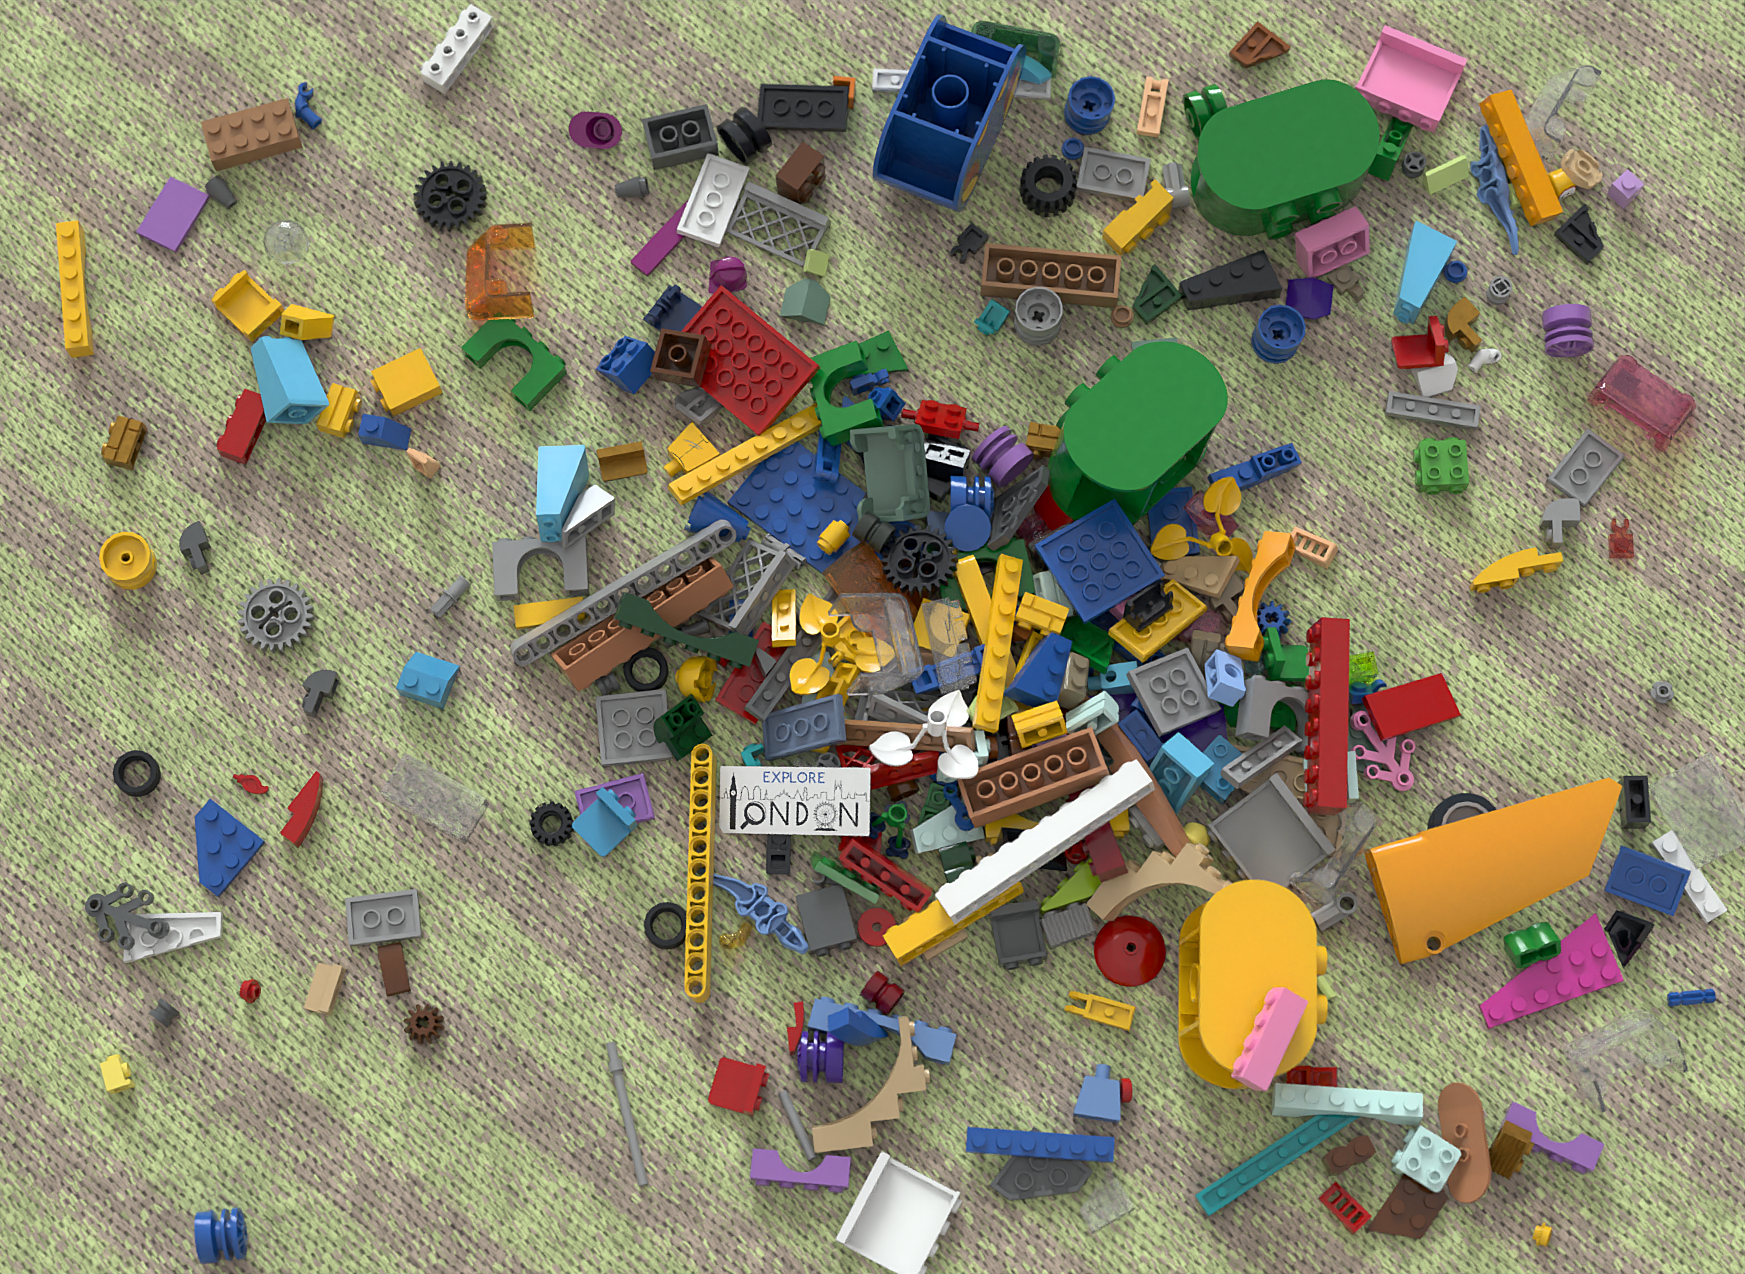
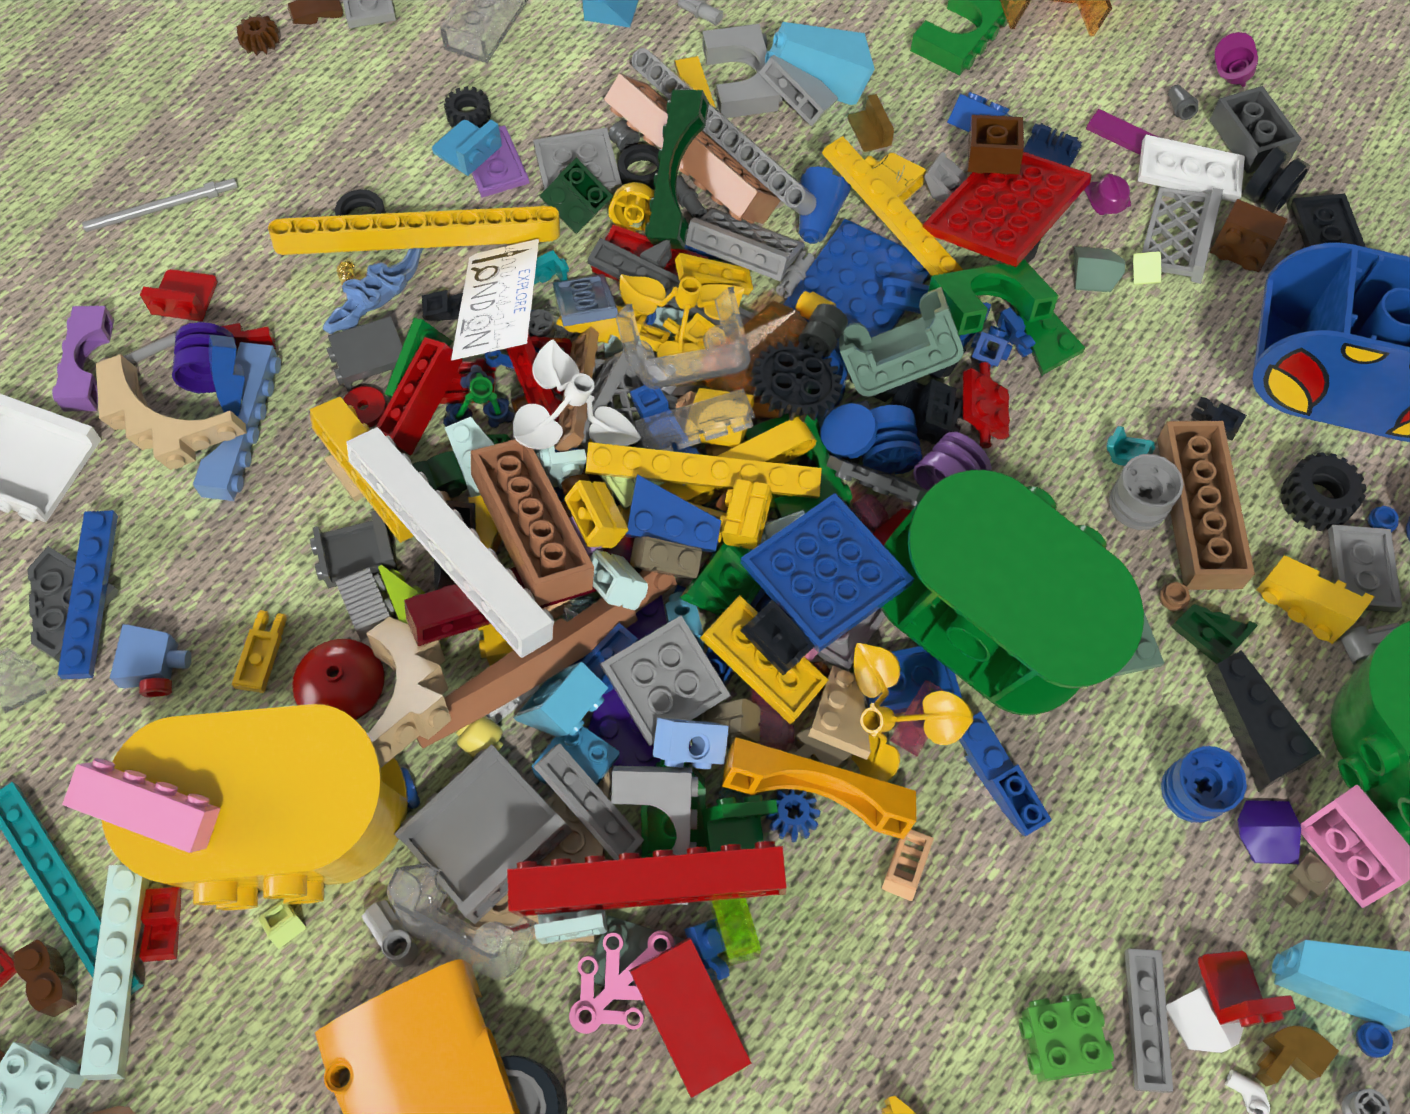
camera: 80 degrees right, 10 degrees down
(882, 993) = (284, 411): dark red wheel -> none

